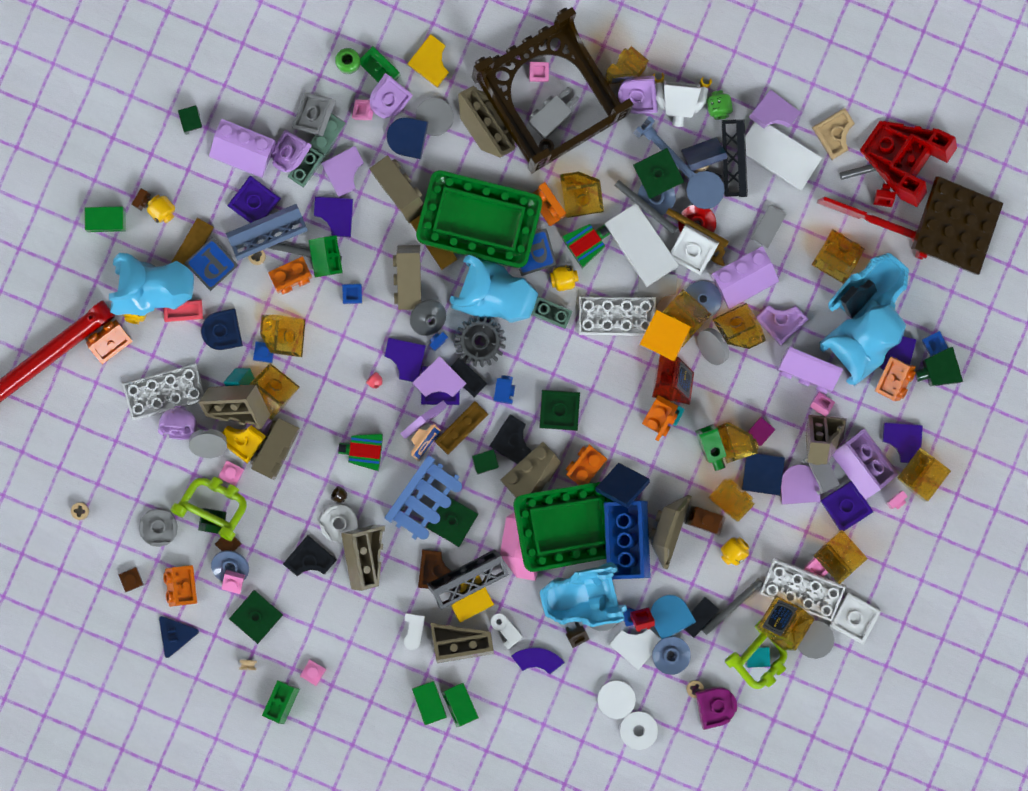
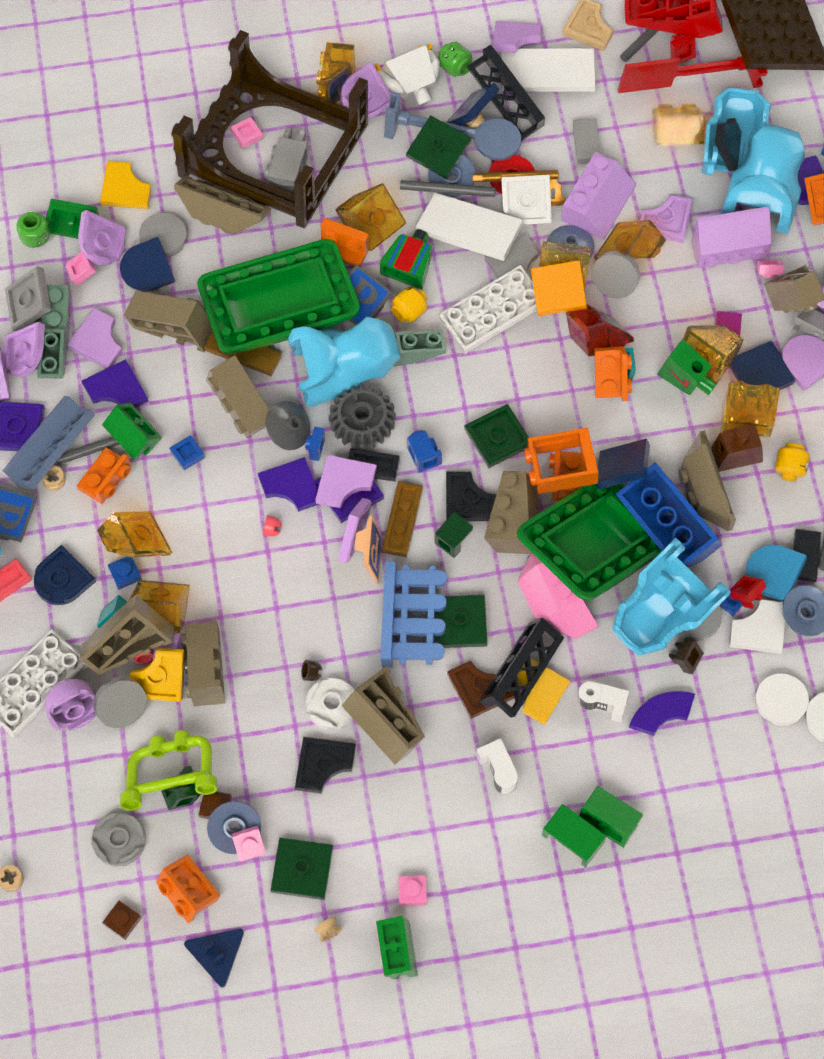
camera: 30 degrees left, 20 degrees down
(231, 473) = (168, 723): bright pink plate -> none
(363, 450) = (308, 605): torso -> none
(460, 643) = (563, 744): dark tan wedge -> none
(565, 445) = (561, 441): none -> orange window

